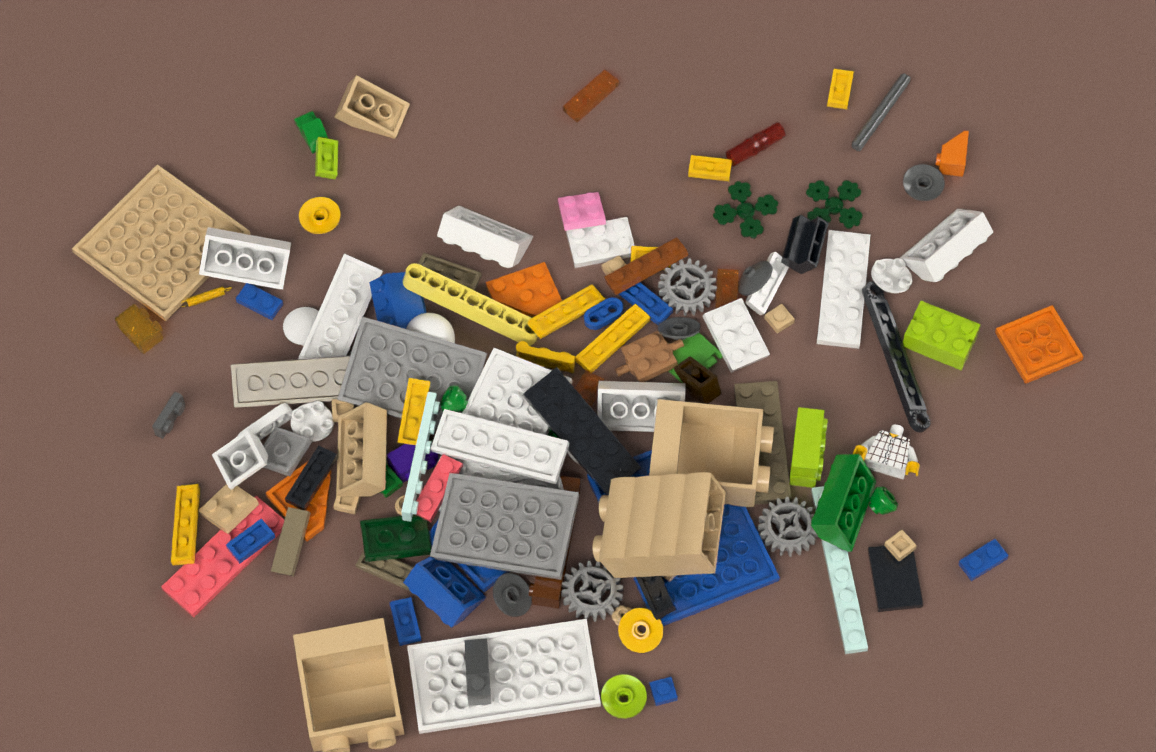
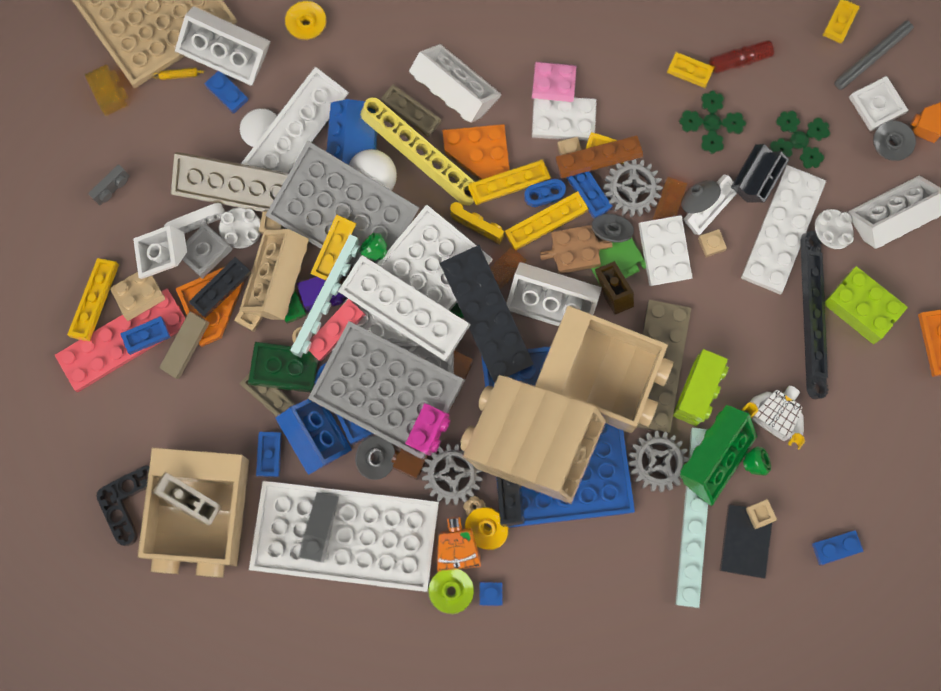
camera: 15 degrees right, 15 degrees up
(266, 700) = (119, 496): none -> black beam
(342, 674) = (187, 499): none -> dark tan slope
(557, 546) = (428, 429): none -> dark pink bracket
(618, 653) = (457, 547): none -> orange torso
(898, 153) = (878, 103): none -> white plate

